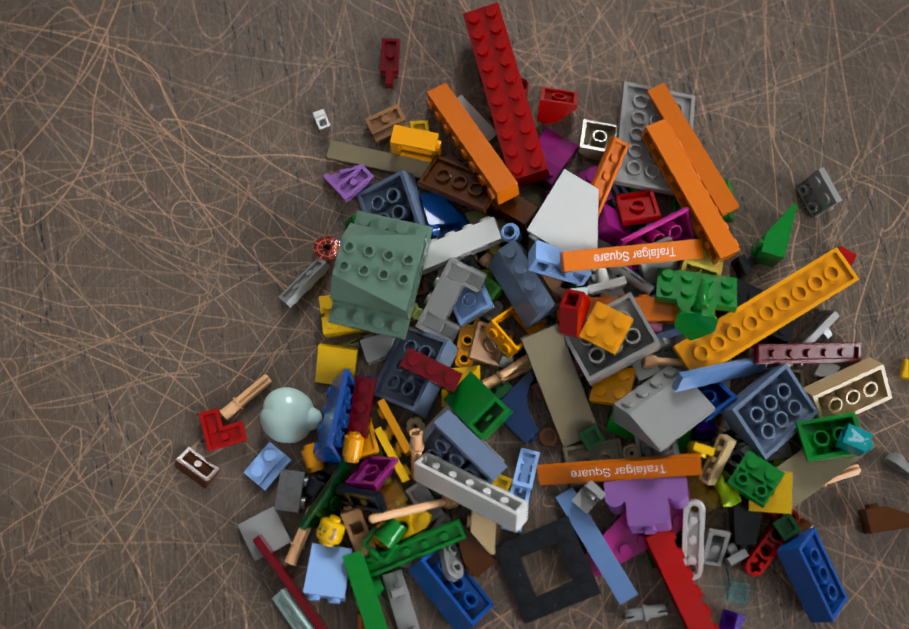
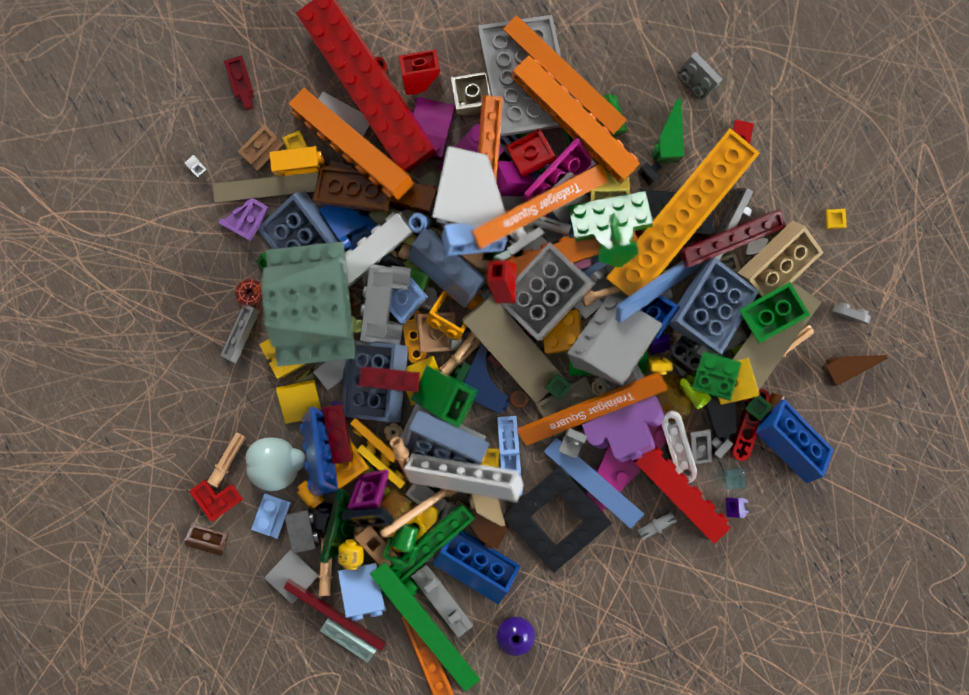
camera: 20 degrees left, 10 degrees up
(353, 447) = (343, 473): light orange brick -> none
(451, 562) = (467, 540): light grey plate -> none
(606, 328) = (537, 284): light orange plate -> none
(716, 463) = (677, 376): tan piece -> none
(855, 440) = (795, 310): teal brick -> none

